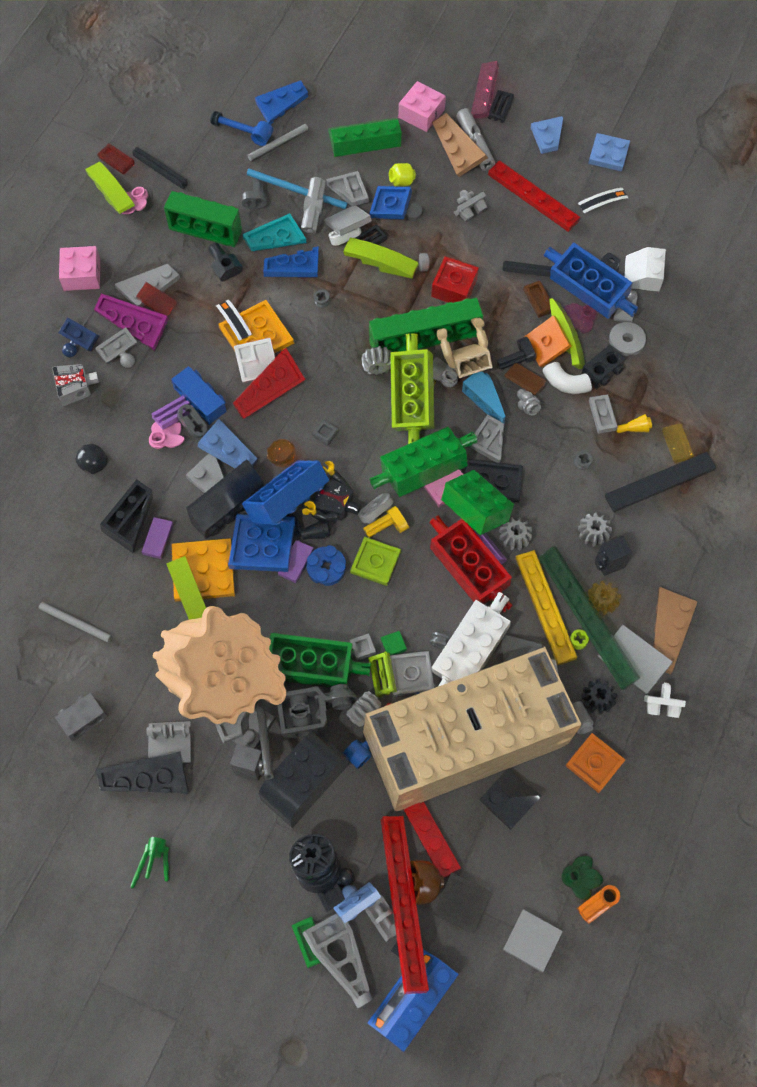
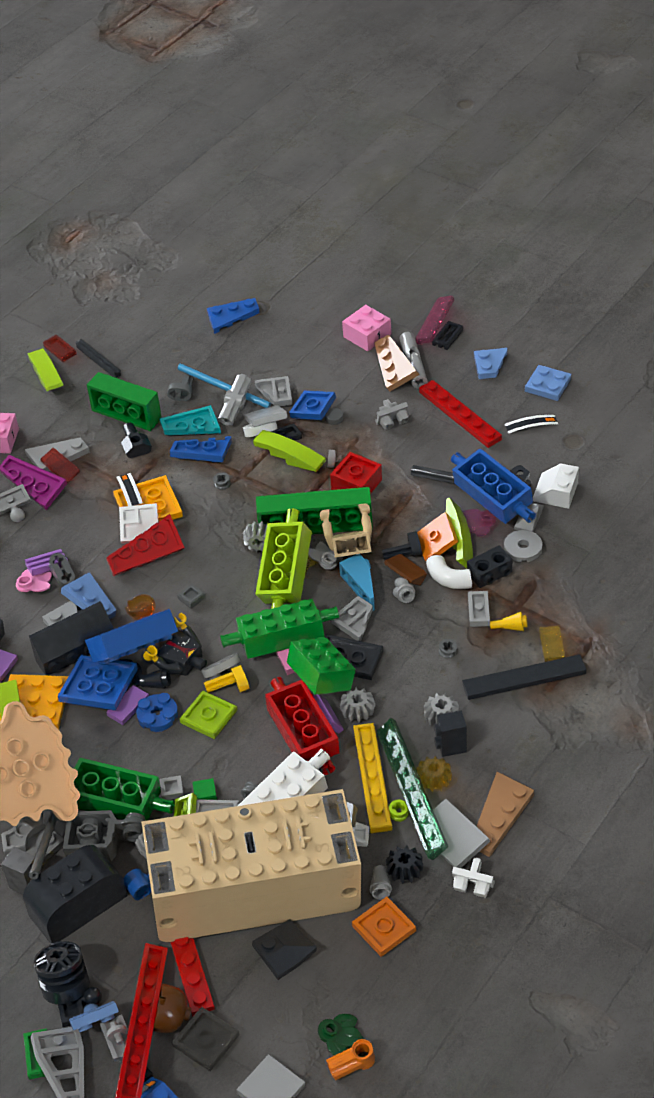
camera: 15 degrees right, 20 degrees down
(139, 198) = (69, 381): bright pink plate -> none
(199, 394) = (76, 549): blue brick -> none
(260, 133) = (201, 338): blue piece -> none
(277, 142) = (218, 347): light grey bar -> none
(365, 137) = (304, 349): green slope -> none
(402, 174) = (331, 382): neon yellow head -> none
(538, 298) = (438, 499): reddish brown tile -> none

